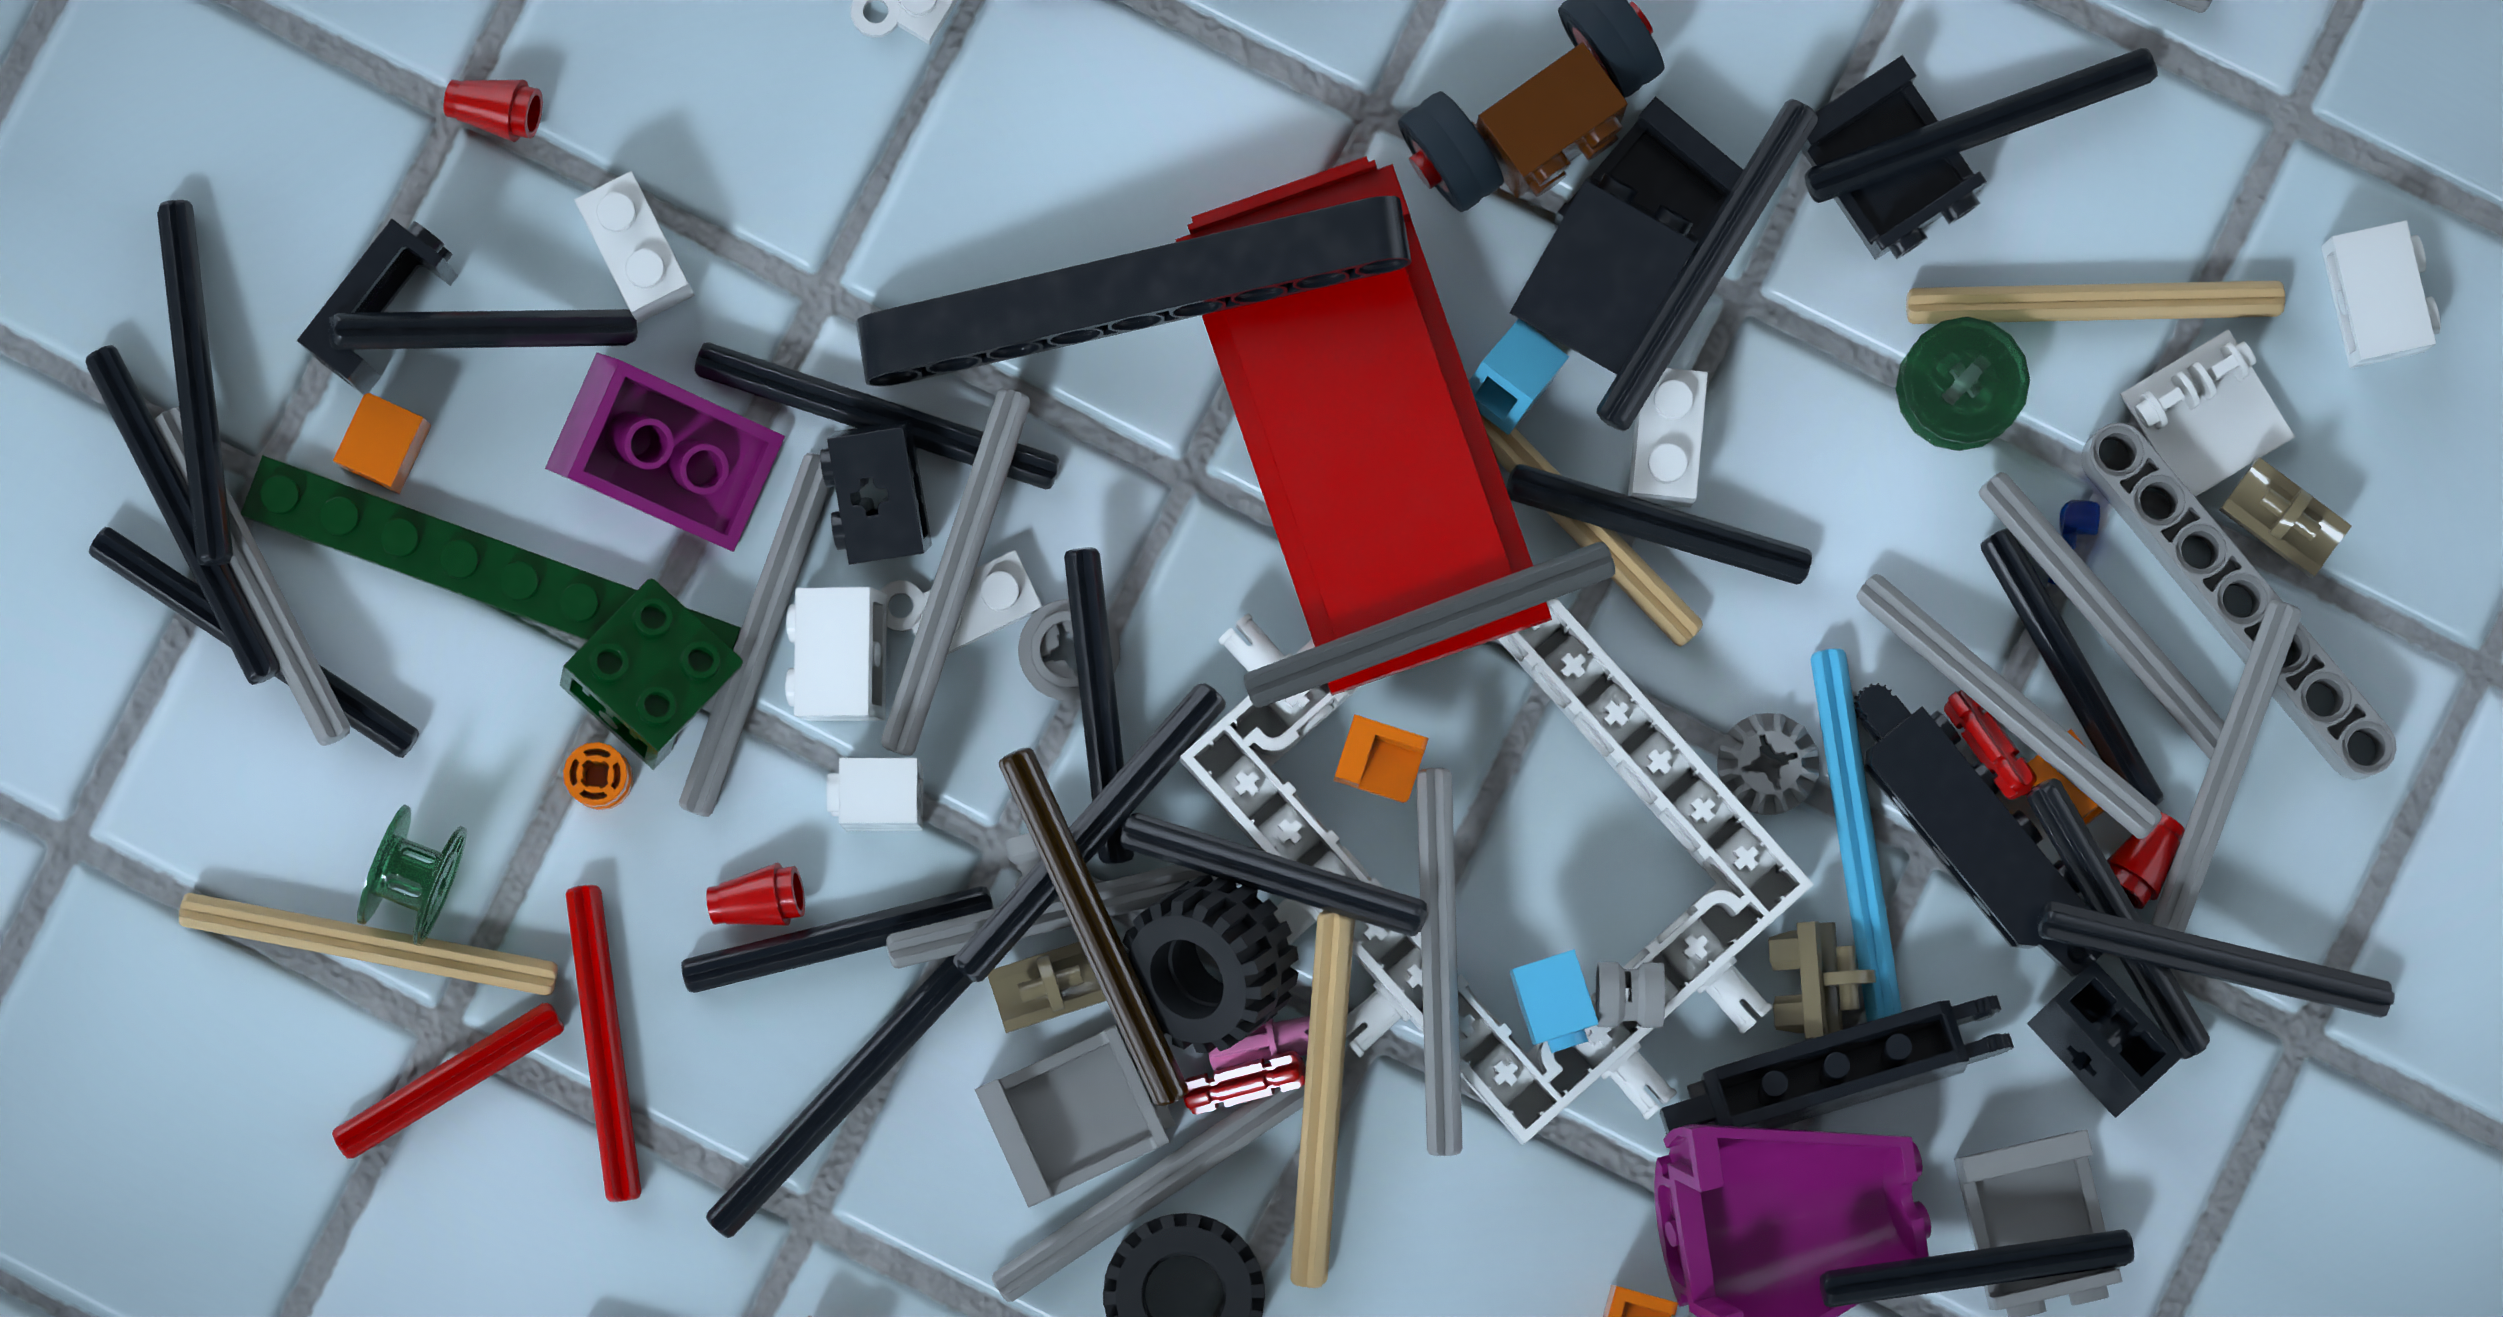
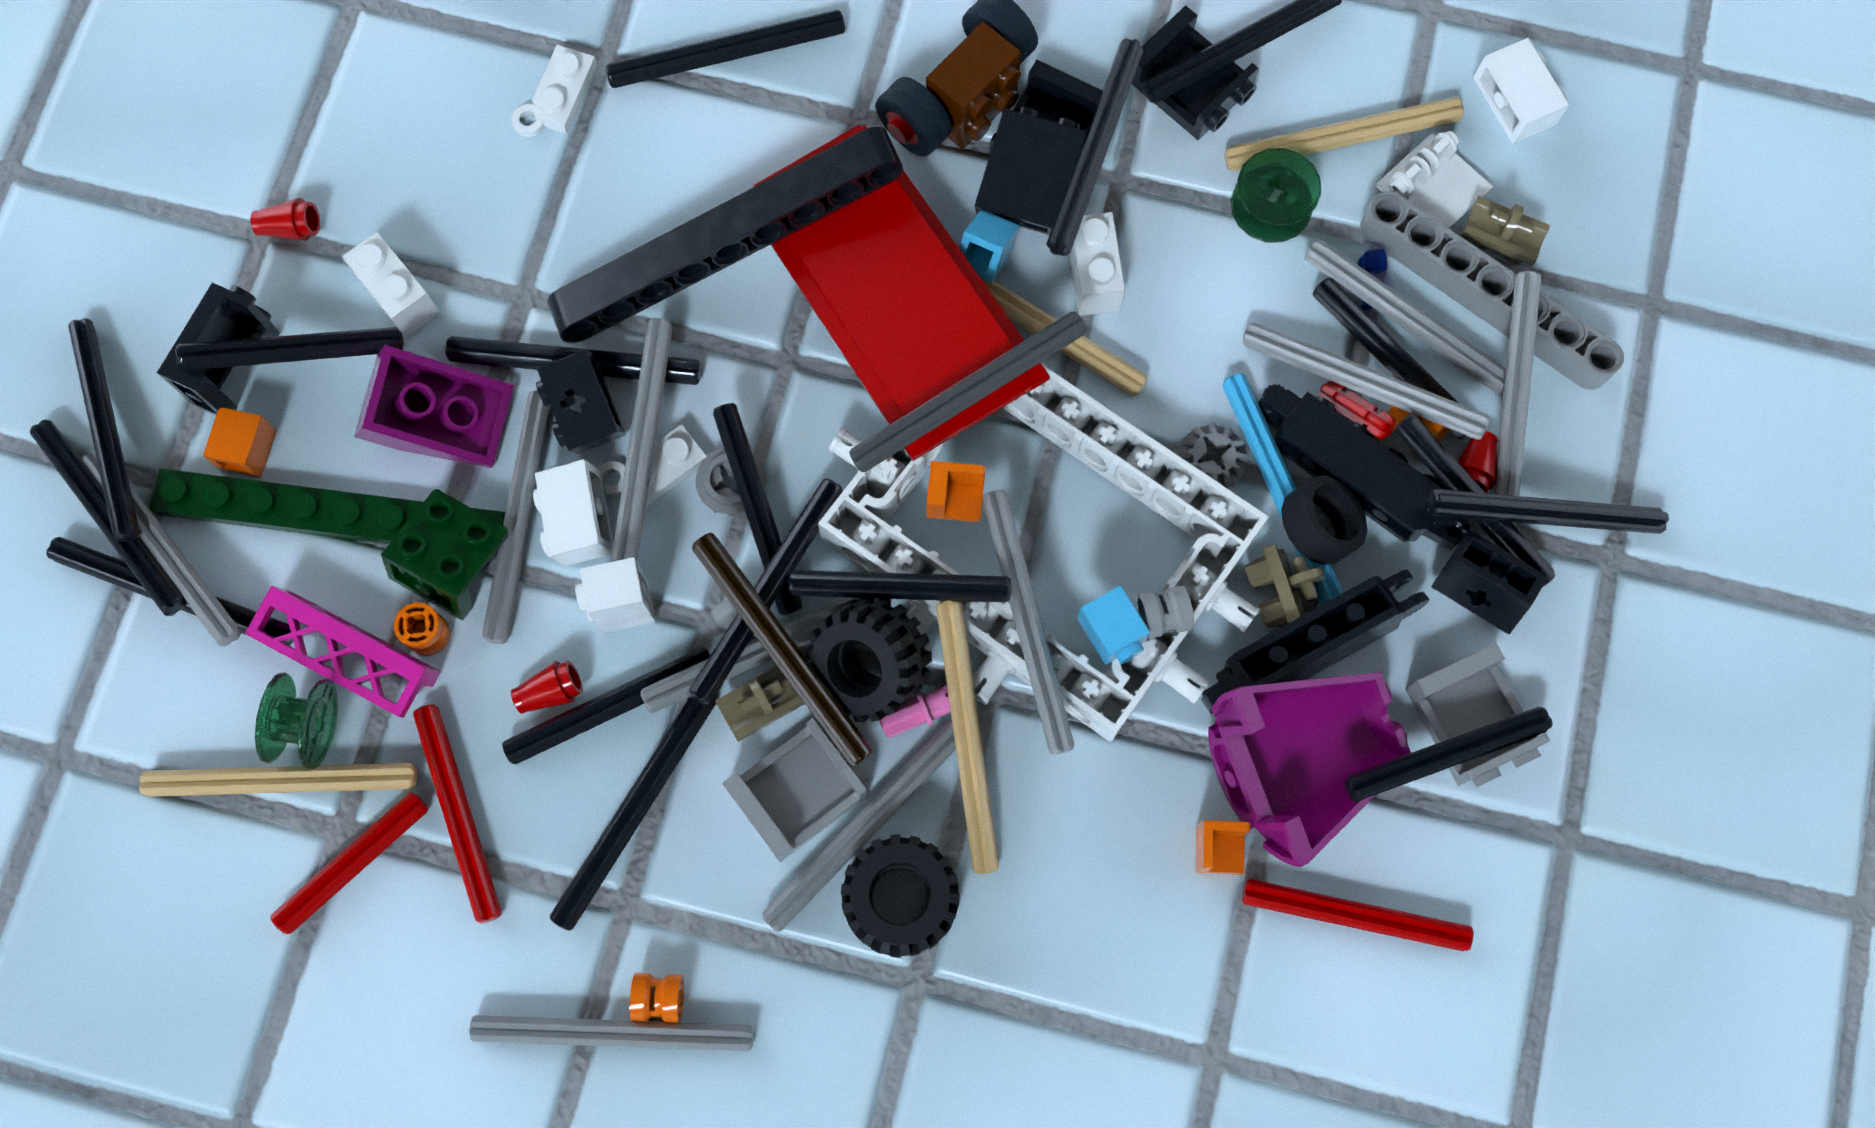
camera: 10 degrees left, 10 degrees down
(500, 766) = (356, 639): none -> dark pink fence
(1245, 1082) = (911, 739): axle -> none
(1659, 524) = (1107, 318): black axle -> none
(1933, 893) = (1309, 534): none -> black tyre

